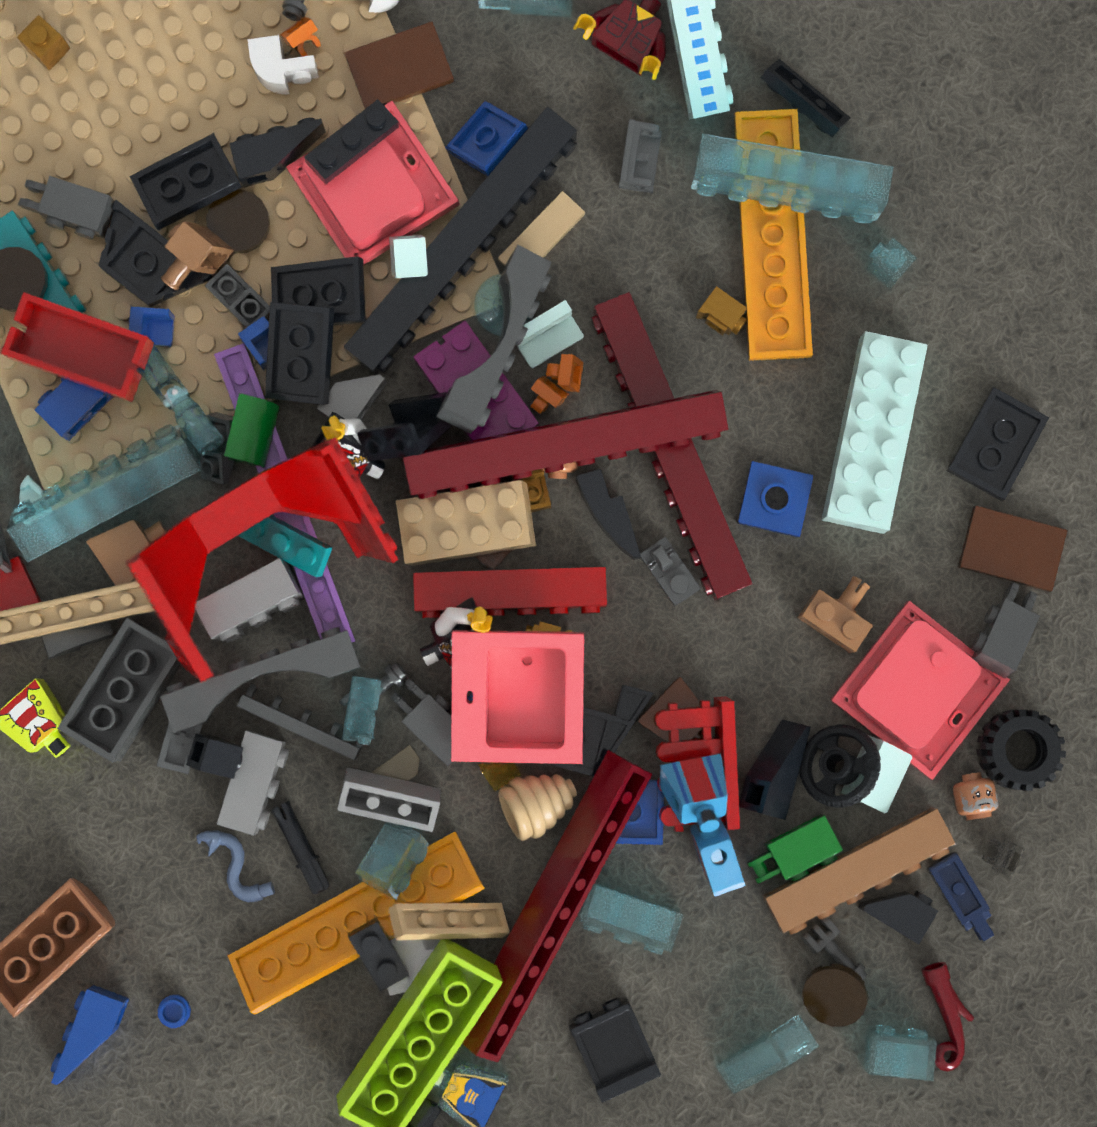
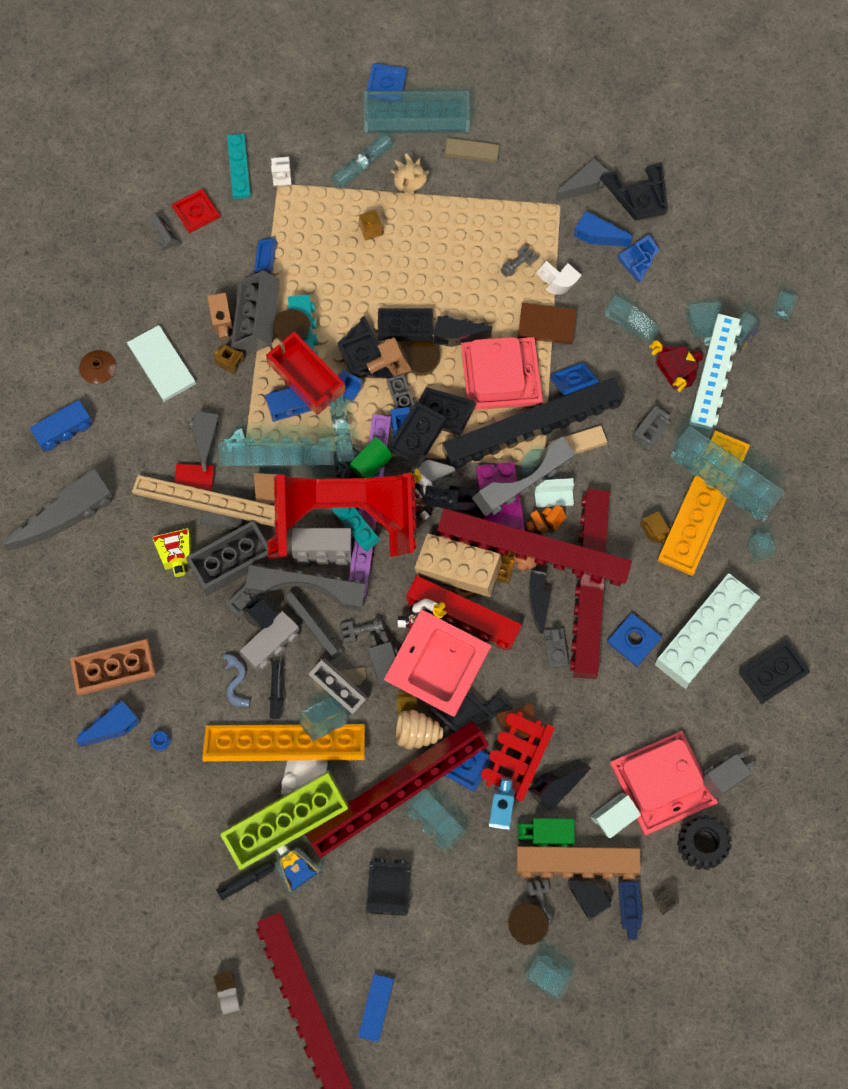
camera: 30 degrees right, 15 degrees down
(71, 206) = (339, 308): dark grey hinge -> none
(275, 70) = (481, 293): white brick -> none
(299, 33) = (504, 282): orange tile -> none
(351, 141) = (502, 343): black plate -> none
(361, 709) = (349, 632): clear light blue hinge -> none
(378, 954) = (288, 762): black plate -> none
(408, 256) = (501, 414): light aqua panel -> none
(448, 921) = (336, 763): tan plate -> none
(696, 790) = (508, 761): dark azure torso -> none
(767, 1055) = (472, 937): clear light blue slope -> none
(805, 98) = (757, 442): black plate -> none
(837, 617) = (636, 718): medium nougat brick -> none
(867, 765) = (596, 797): black wheel -> none
(950, 1007) = (591, 970): dark red plant -> none
(975, 796) = (665, 855): nougat head -> none
(1012, 548) = (755, 733): reddish brown tile -> none

